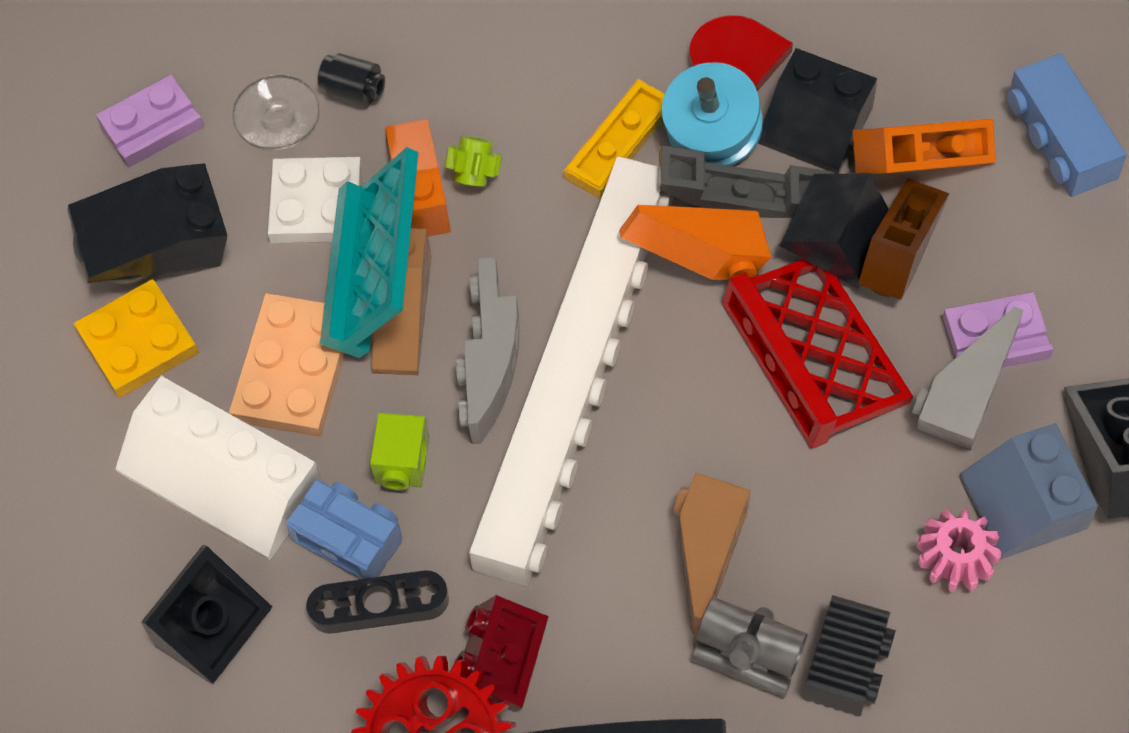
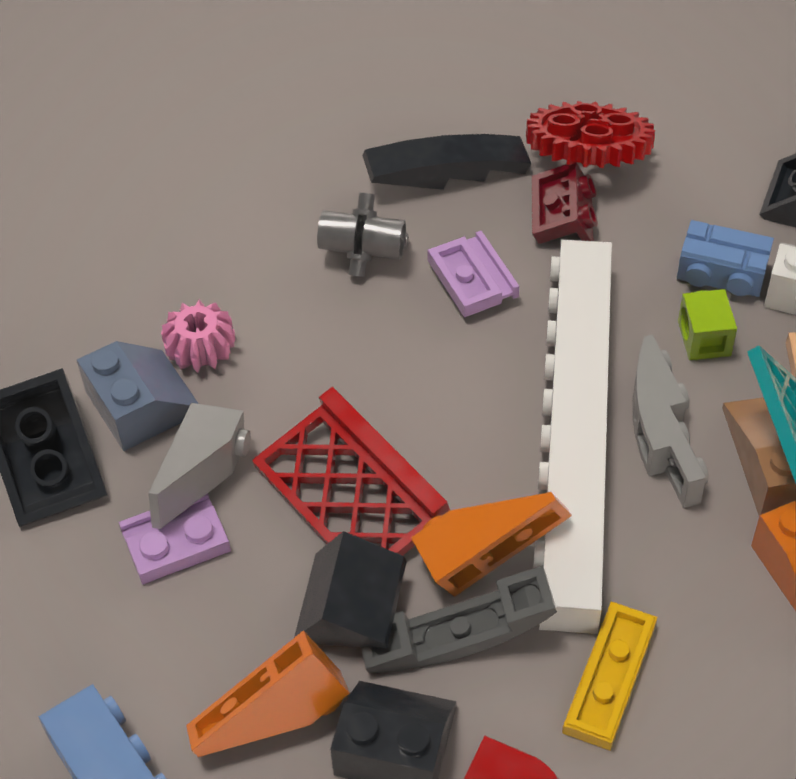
camera: 165 degrees right, 10 degrees down
(362, 588) = (649, 236): black beam -> none
(473, 160) = (759, 608): lime gear -> none
(632, 577) = (472, 273): none -> lavender plate
(709, 529) = (416, 307): medium nougat slope -> none
(713, 112) = (511, 691): medium azure wheel -> none
(847, 656) = (281, 249): black brick -> none
(902, 239) = (276, 597): reddish brown slope -> none

